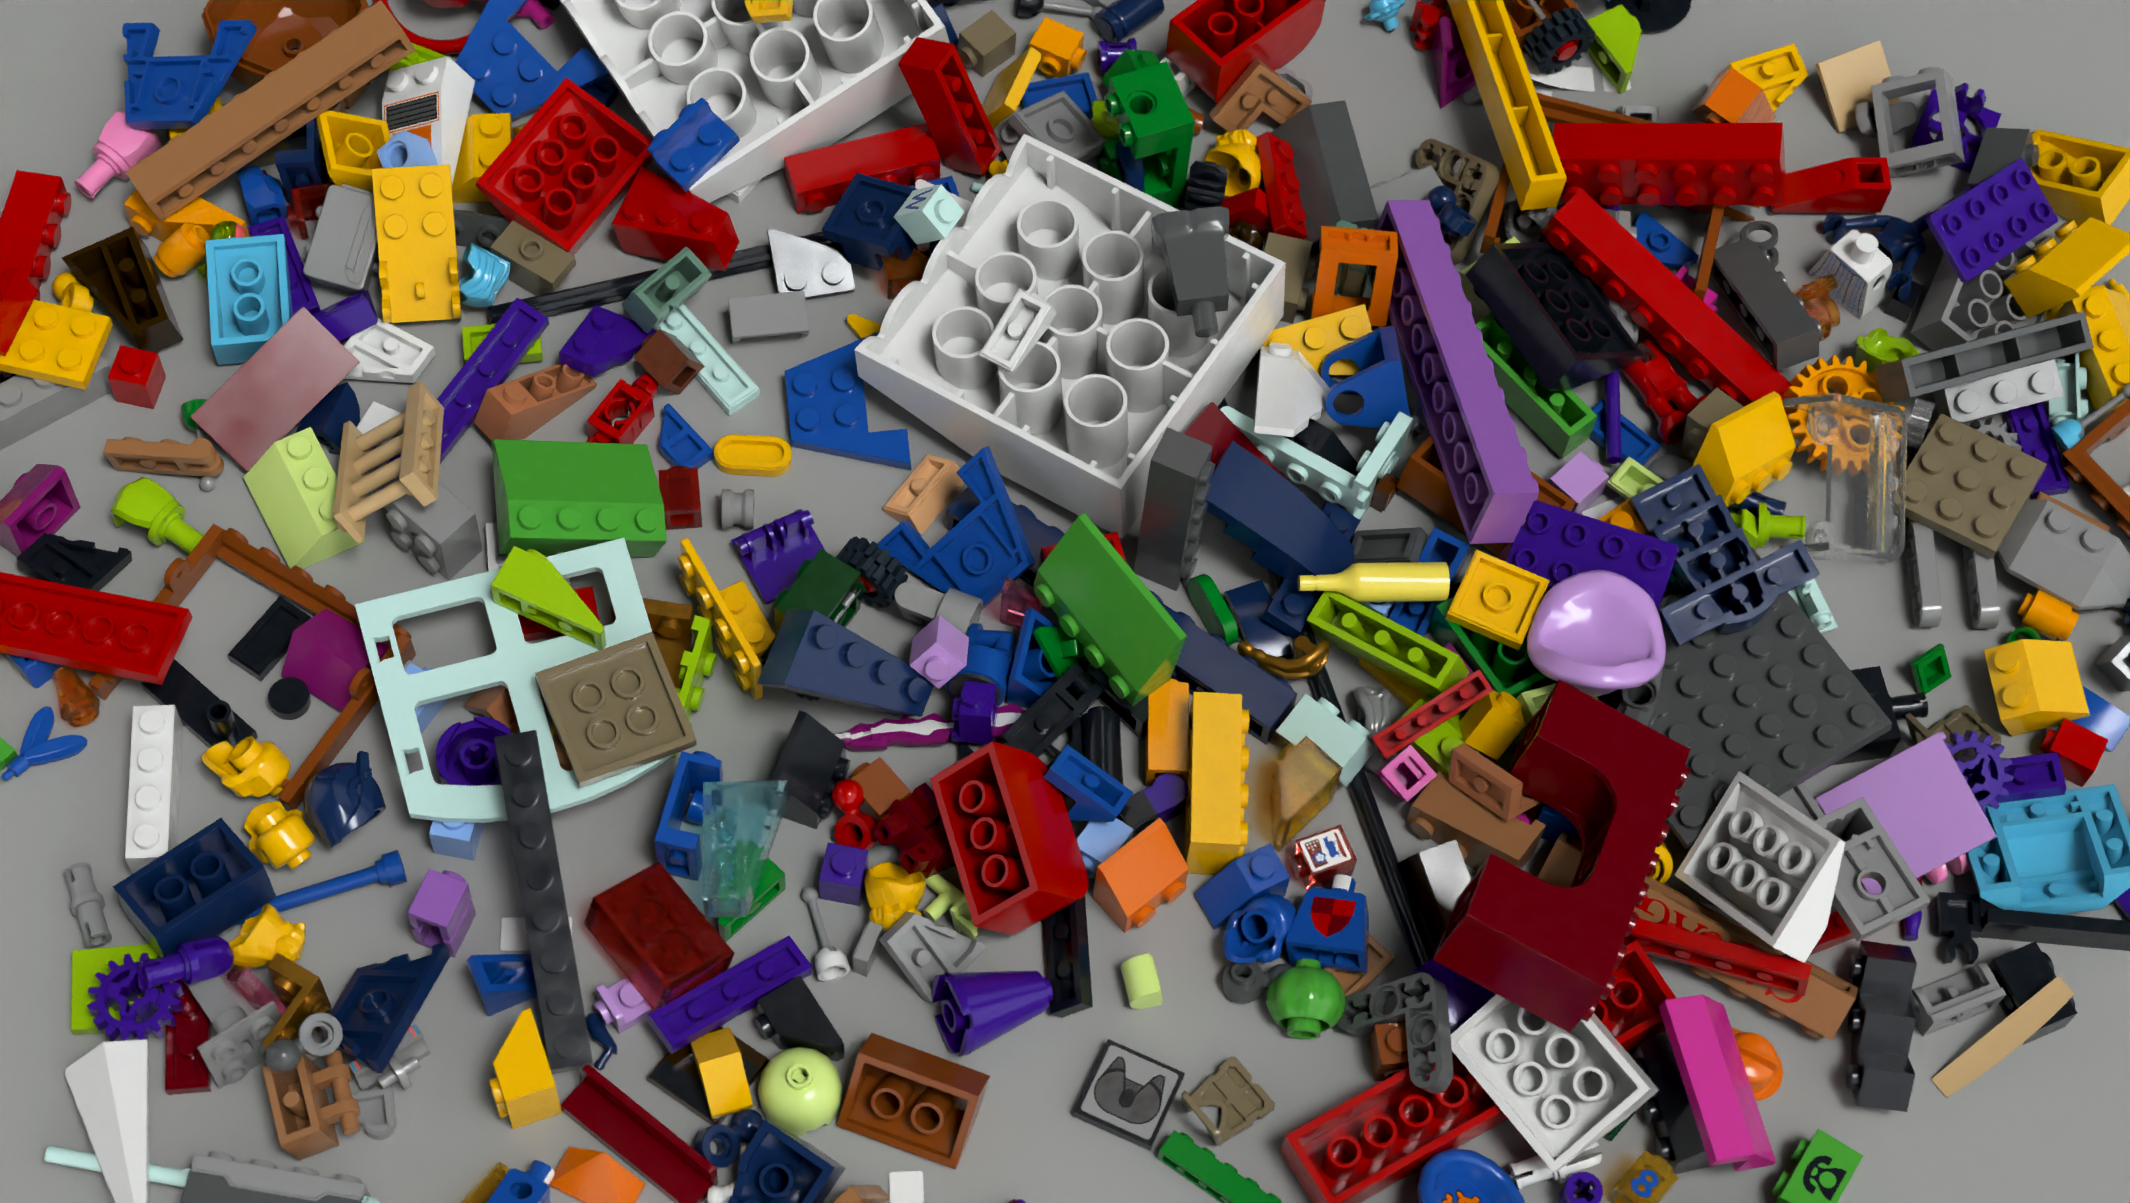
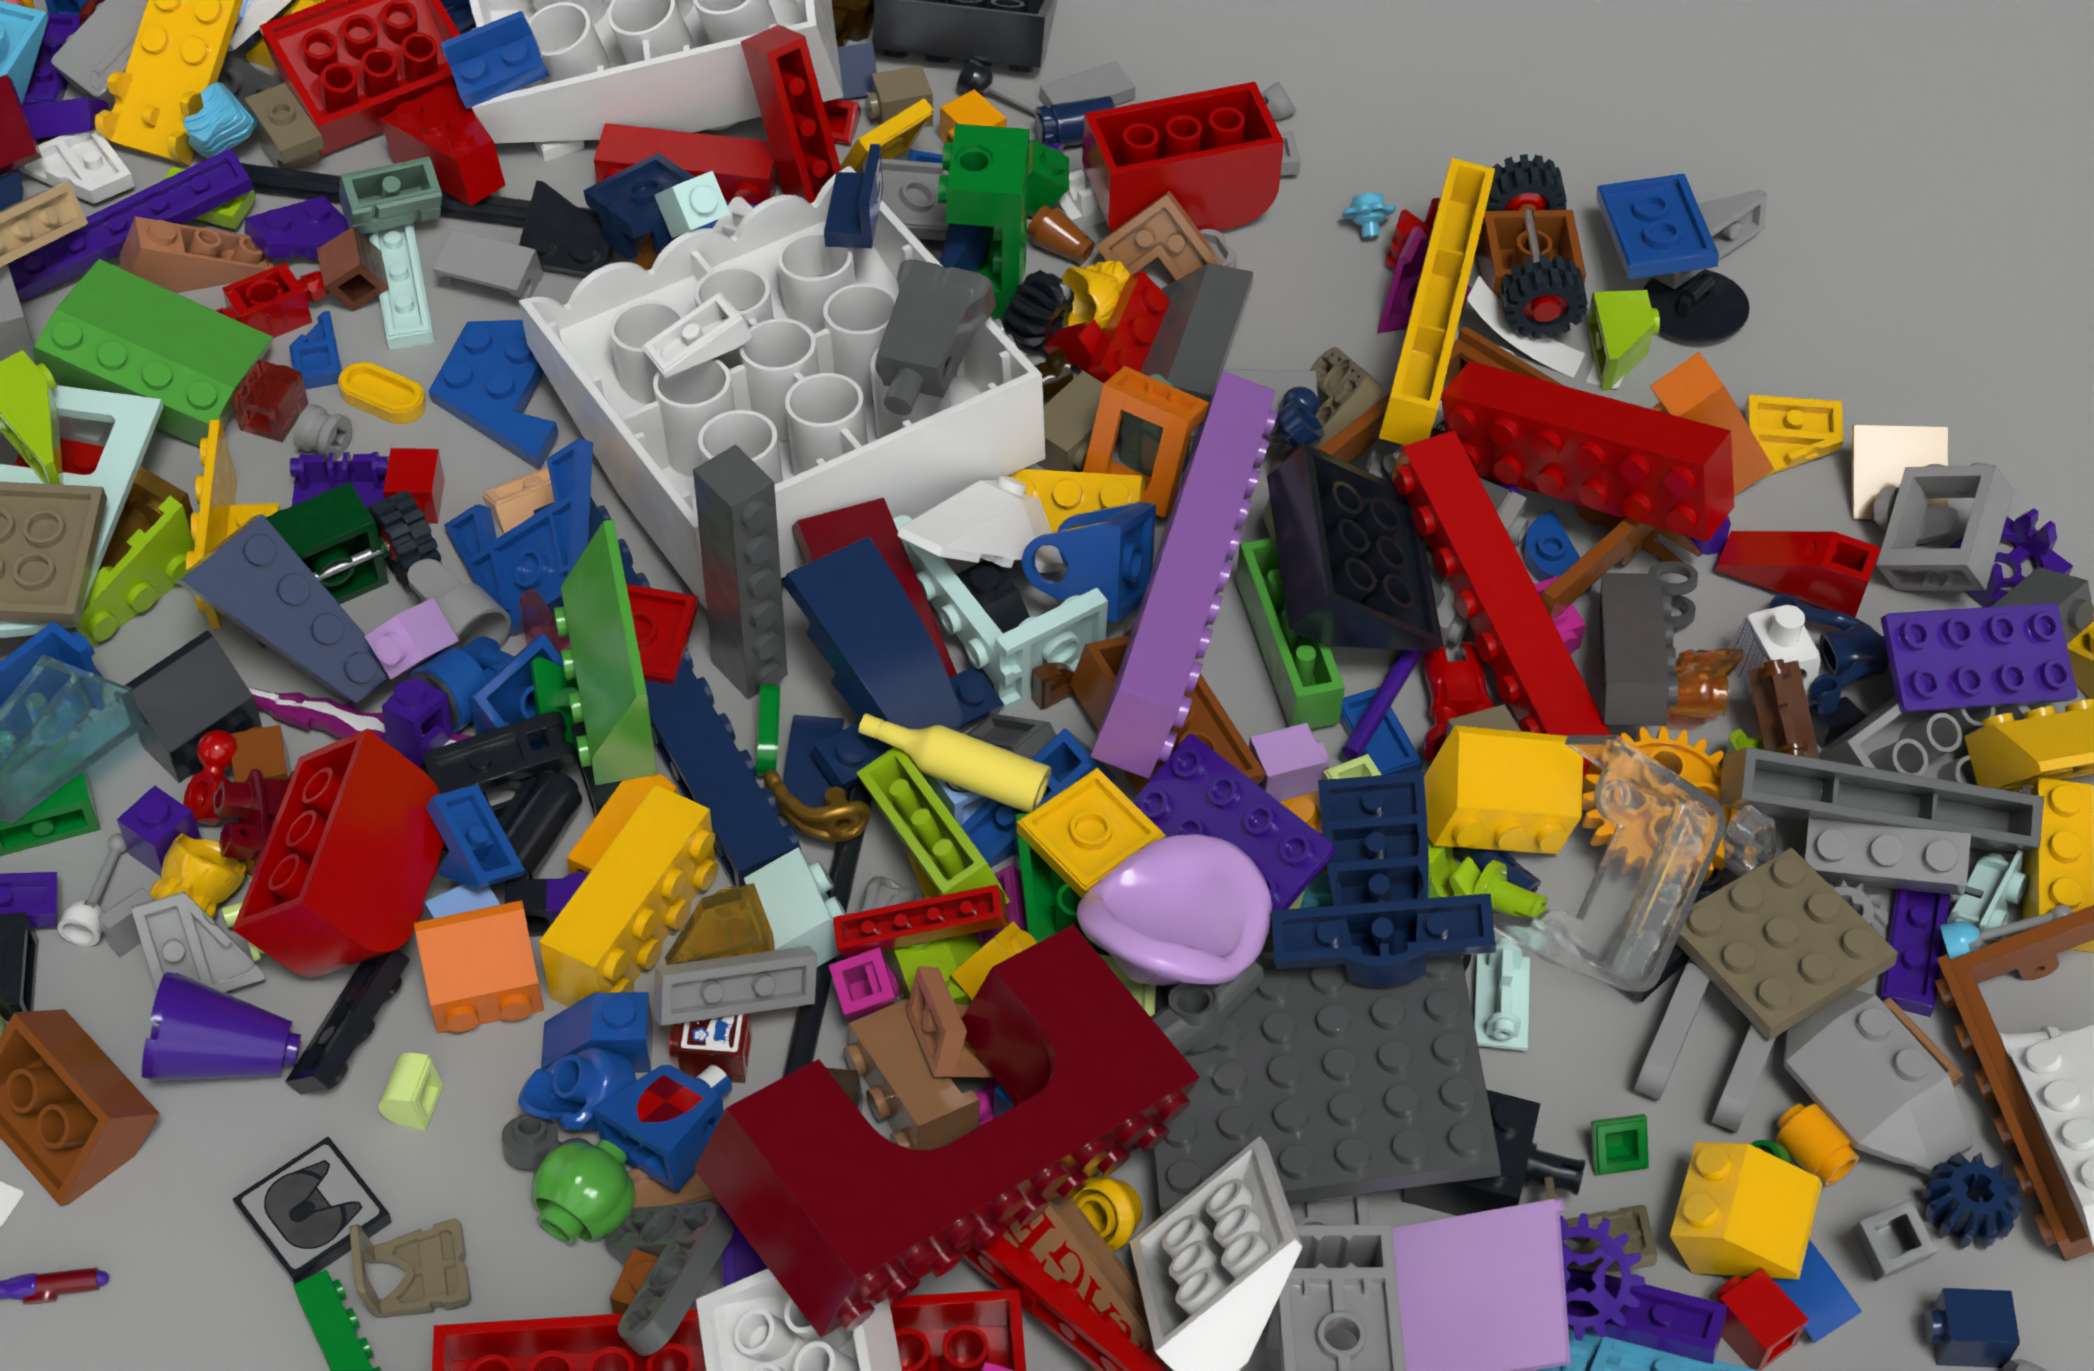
camera: 30 degrees right, 10 degrees down
(835, 521) = (420, 474): none -> red brick
(1060, 169) = (855, 205): none -> dark blue panel
(1330, 813) = (734, 985): none -> light grey plate
(1886, 314) = (1783, 709): none -> reddish brown hinge

